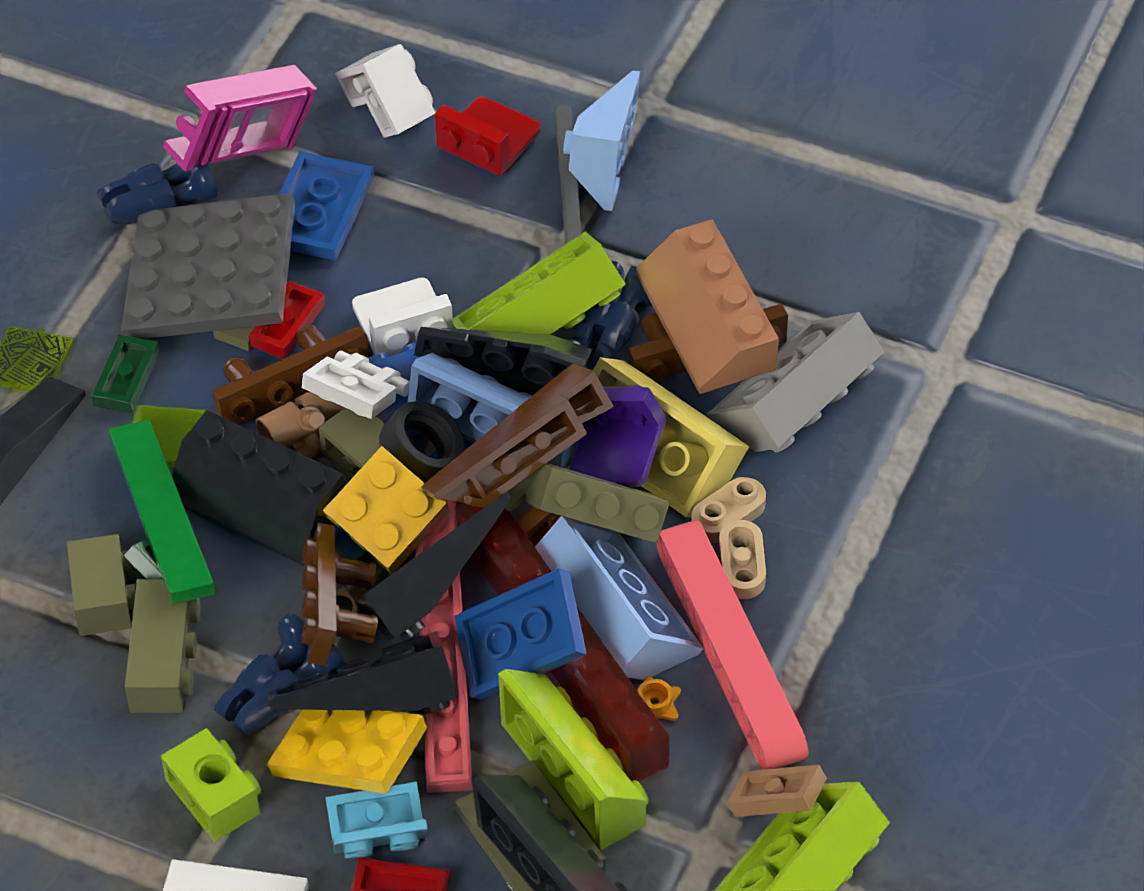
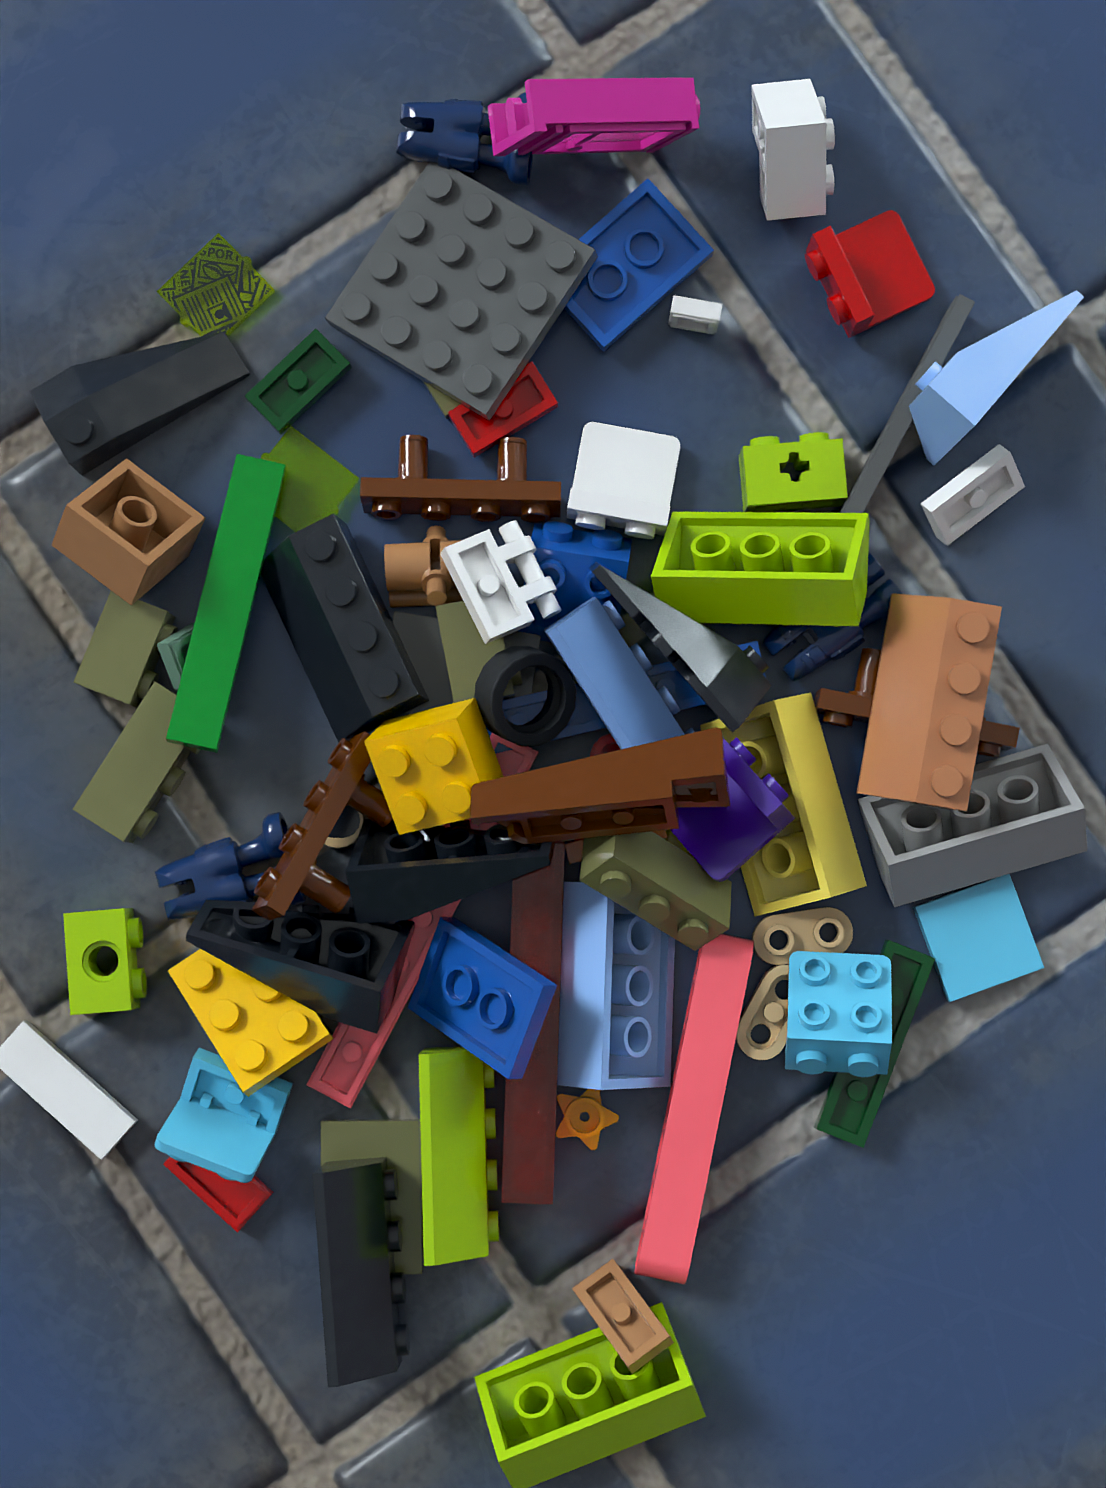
camera: 30 degrees right, 35 degrees up
(57, 501) = (127, 531): none -> medium nougat brick
(385, 206) = (694, 315): none -> white tile
(514, 251) = (819, 486): none -> lime brick
(650, 210) = (973, 494): none -> white plate
(791, 523) = (839, 1013): none -> medium azure bracket
(829, 541) = (854, 1100): none -> dark green plate
(852, 447) = (978, 937): none -> medium azure tile

